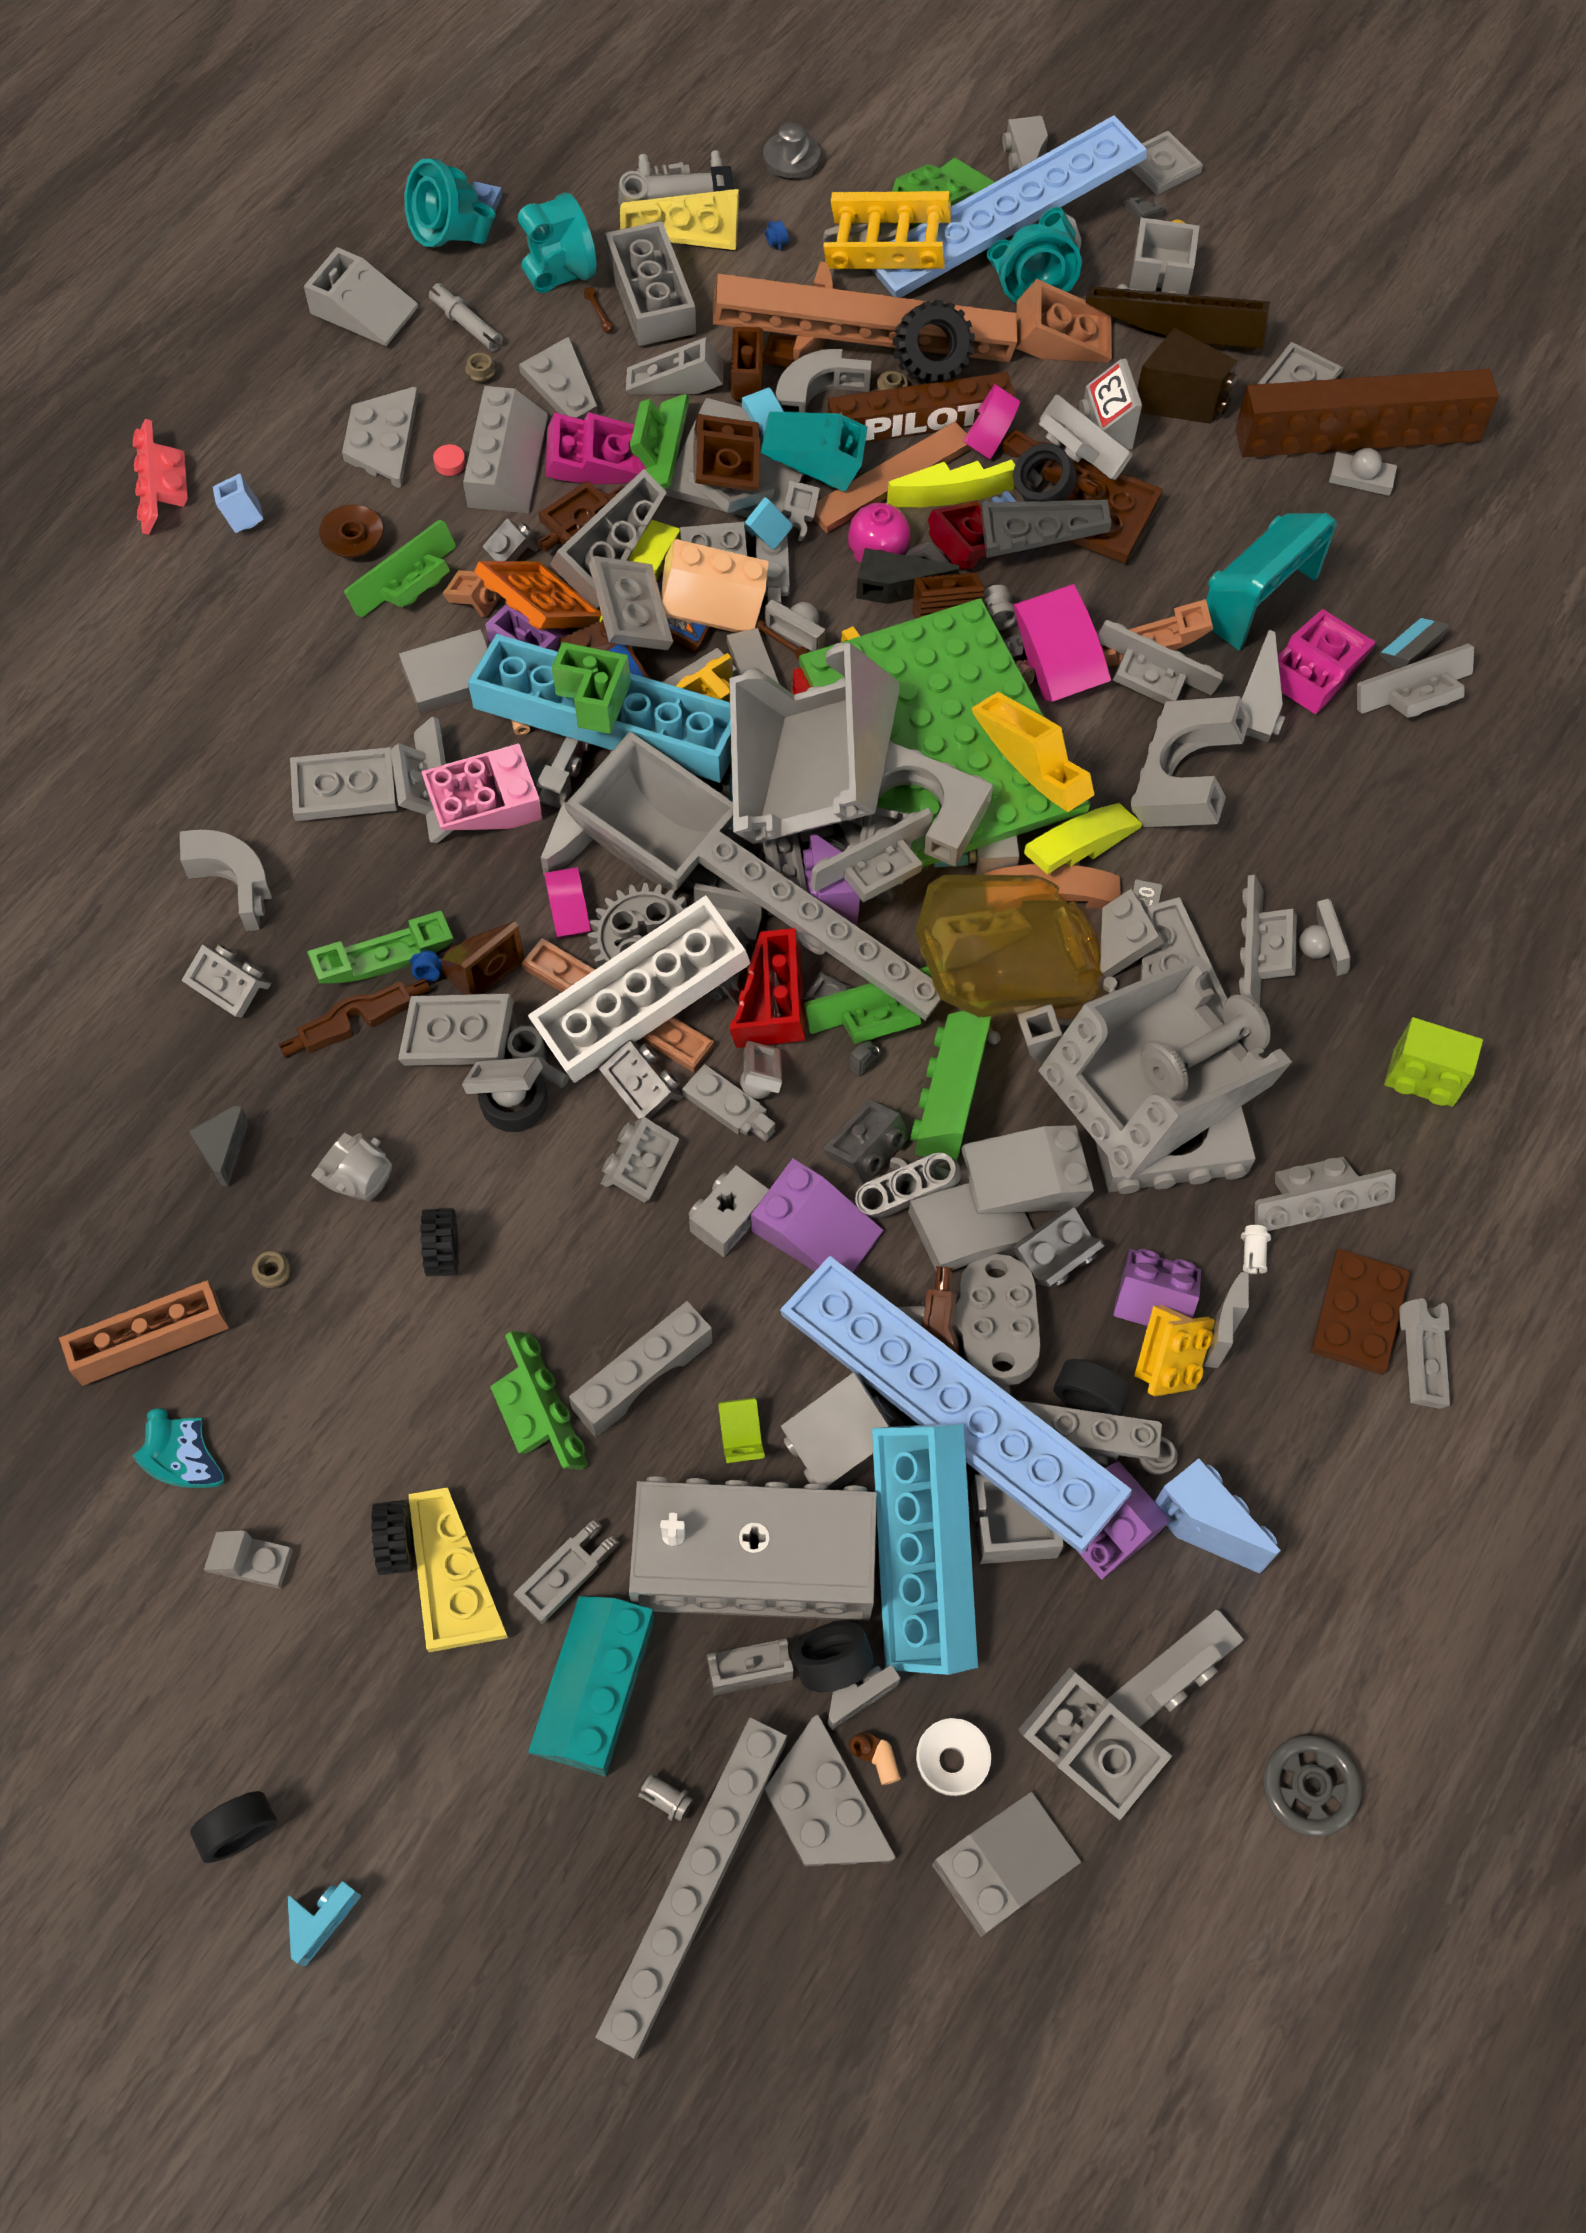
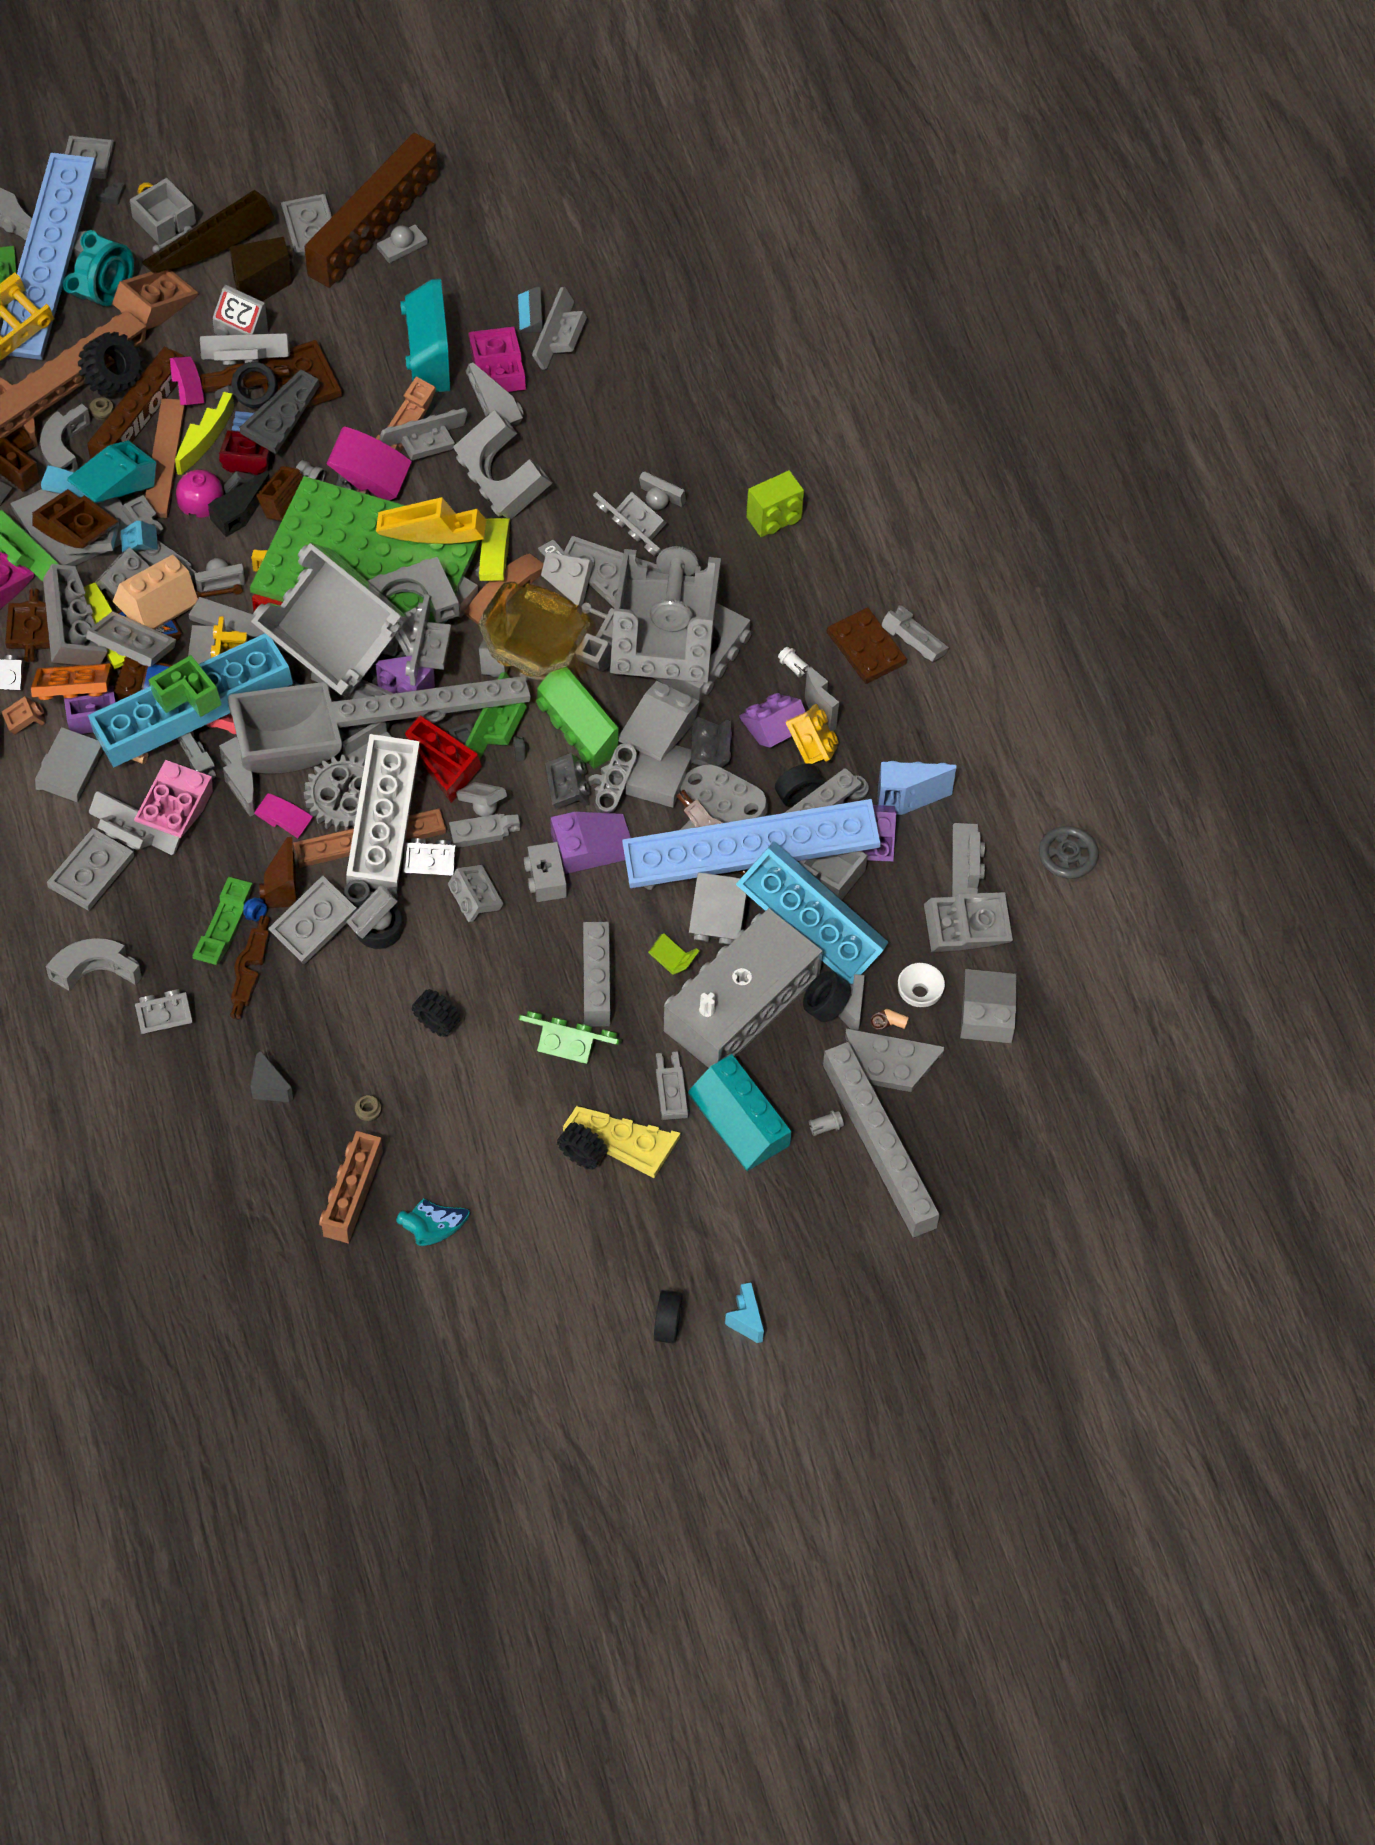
camera: 50 degrees left, 5 degrees down
(248, 1559) = (524, 1227): light grey slope -> none
(354, 1167) = (346, 1025): light grey helmet -> none
(750, 1667) = (795, 1040): light grey hinge -> none
(1322, 1192) = (792, 608): light grey bracket -> none

